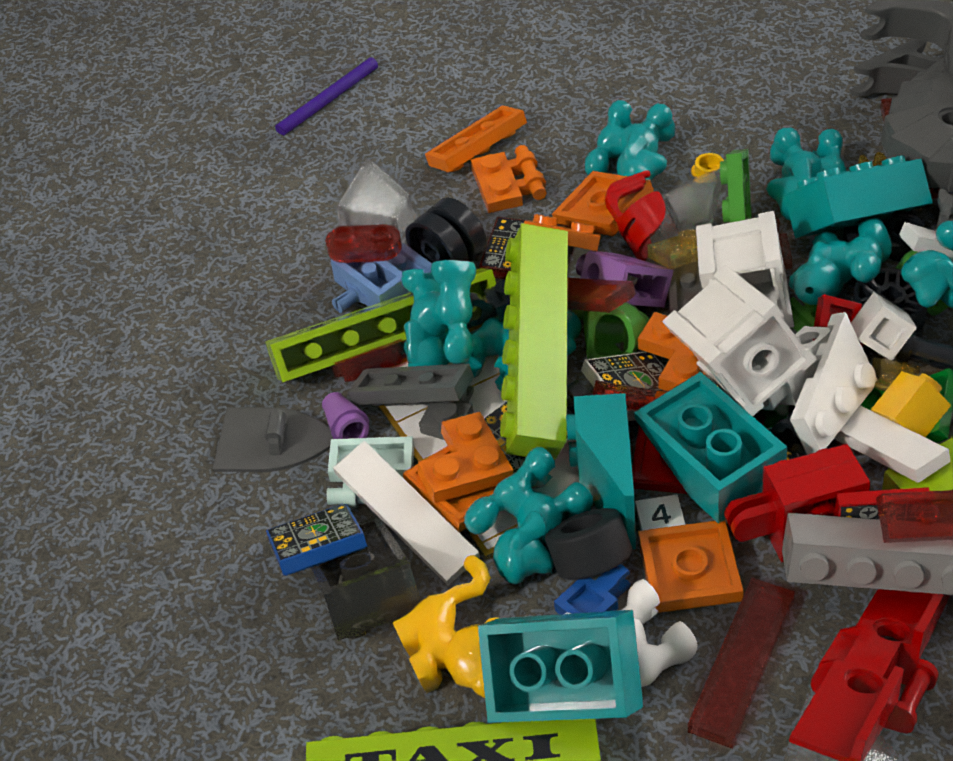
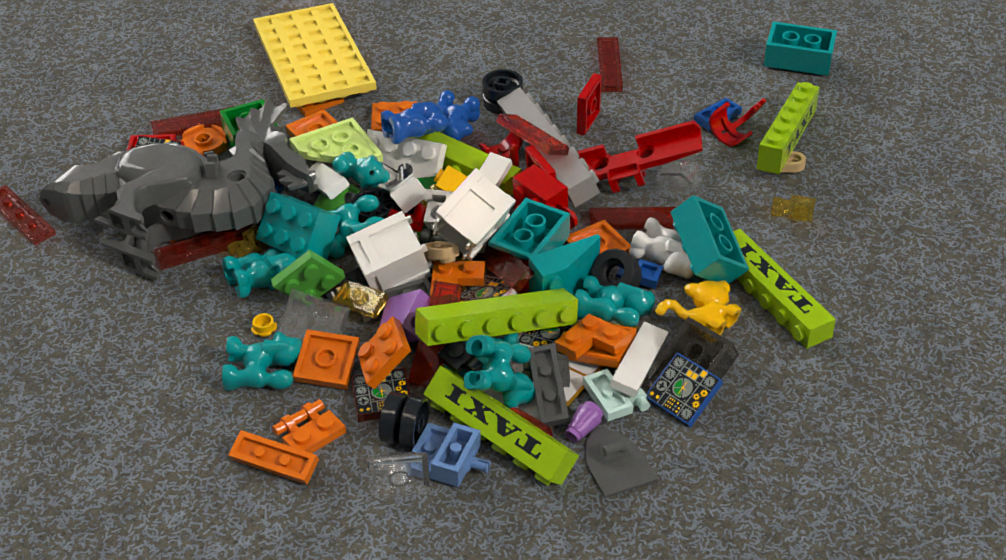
camera: 120 degrees left, 5 degrees down
(363, 243) = (438, 448): clear red plate -> none
(646, 212) = (360, 313): red helmet -> none

